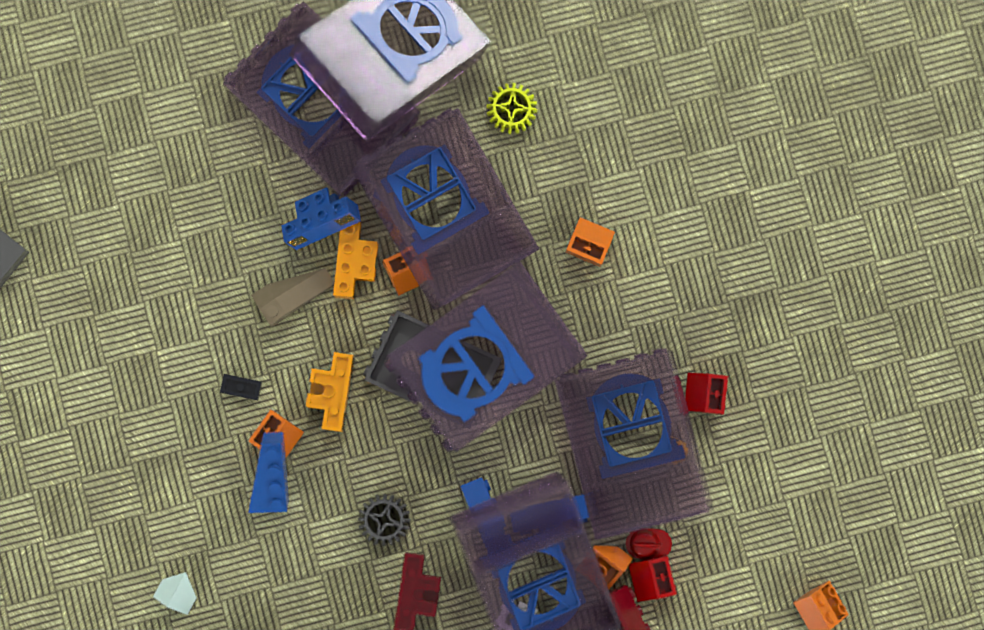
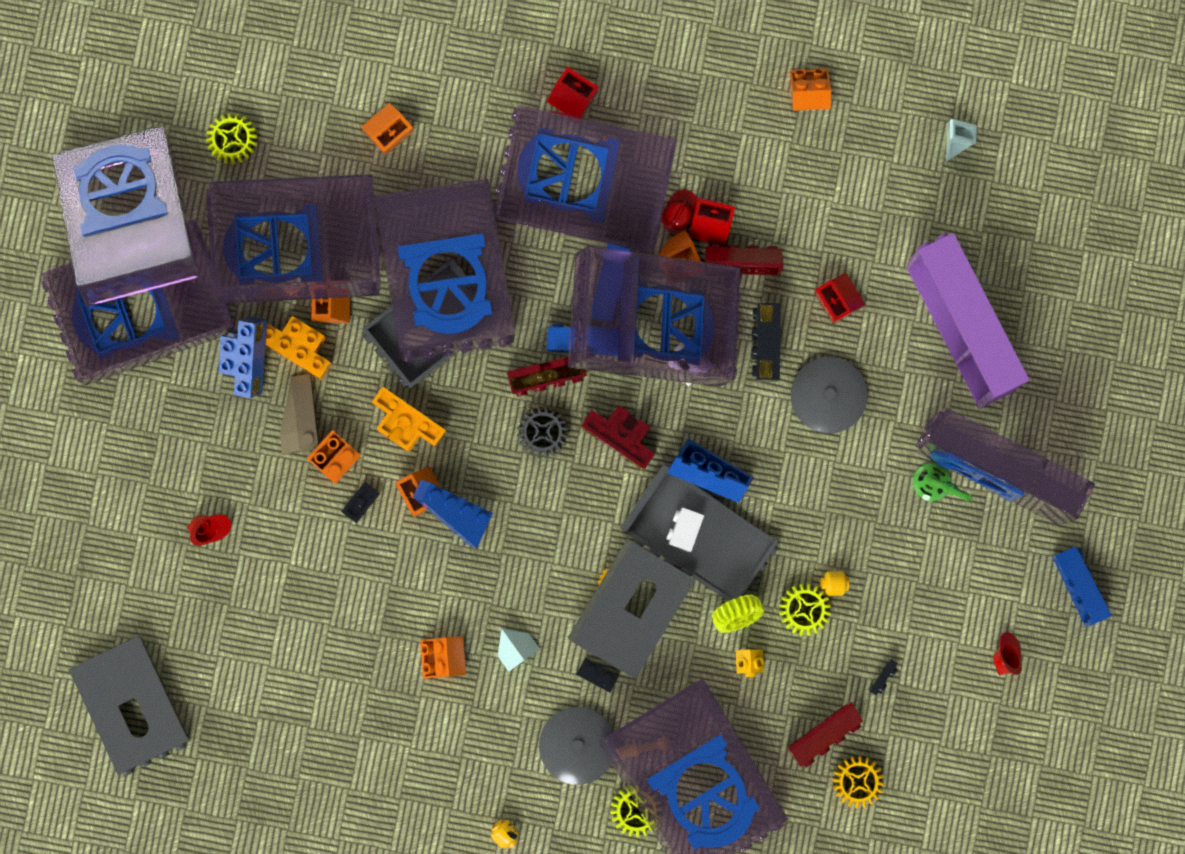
camera: 65 degrees left, 0 degrees up
(136, 531) = (443, 657): none -> orange slope
(150, 262) = (208, 529): none -> red piece
(268, 343) = (333, 457): none -> orange slope
(433, 494) = (542, 375): none -> piece

